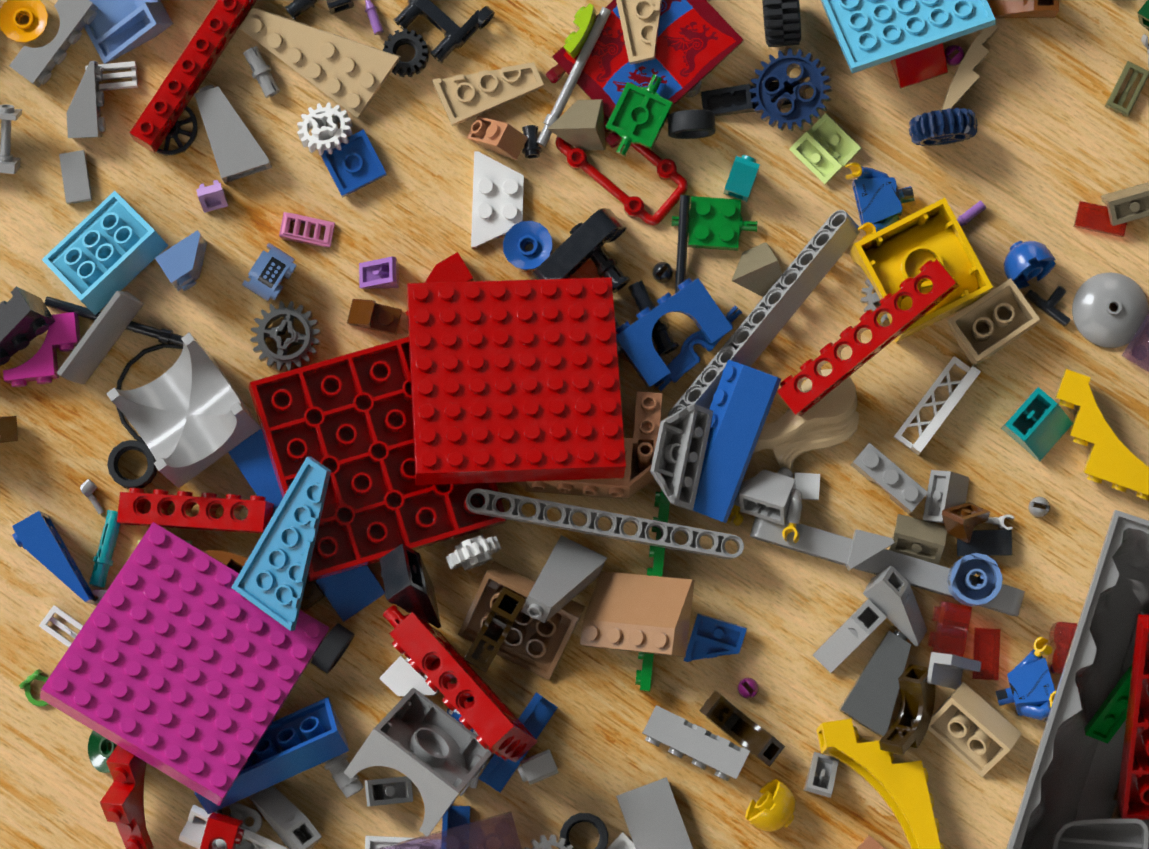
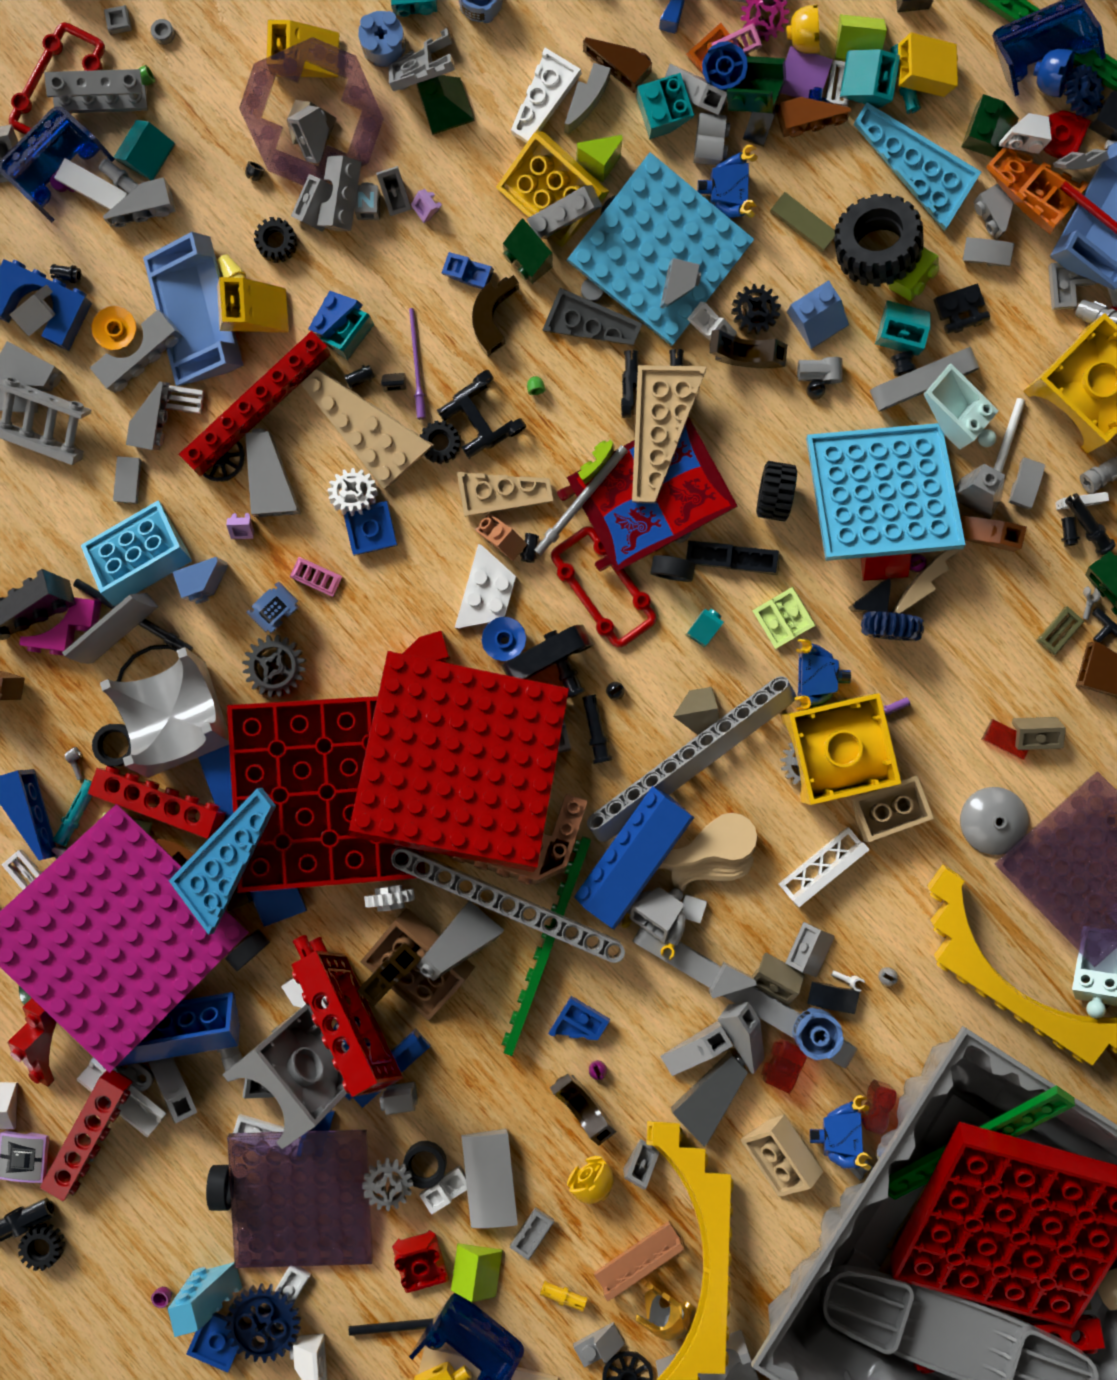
camera: 10 degrees right, 5 degrees up
(261, 72) = (310, 427): light grey pin -> none
(374, 316) = (356, 667): reddish brown slope -> none
(379, 273) = (369, 631): medium lavender slope -> none
(409, 584) = (325, 917): black slope -> none
(582, 125) = (577, 545): dark tan slope -> none
(639, 115) = (629, 550): green plate -> none
(639, 614) = (519, 989): medium nougat slope -> none
(681, 454) = (590, 862): light grey wedge -> none
(682, 240) = (638, 671): black bar -> none
(688, 357) = (639, 759): blue piece -> none
(691, 300) = (578, 744): blue arch -> none
(696, 743) = (541, 1110): light grey wedge -> none
(715, 223) = (670, 659): green plate -> none
(779, 70) = (773, 580): dark blue gear -> none
(882, 336) = (706, 839): red brick -> none
(890, 478) = (765, 921): light grey arch -> none
(914, 711) = (734, 1133): dark brown arch -> none
(917, 104) = (874, 600): none -> black slope
(947, 669) = (773, 1100): light grey panel -> none
(962, 519) = (821, 974): reddish brown slope -> none
(987, 651) = (809, 1092): clear red tile -> none
(1028, 261) = (934, 762): blue cylinder -> none
(1038, 424) = (906, 905): teal slope -> none
(1049, 305) = (941, 804): black piece -> none

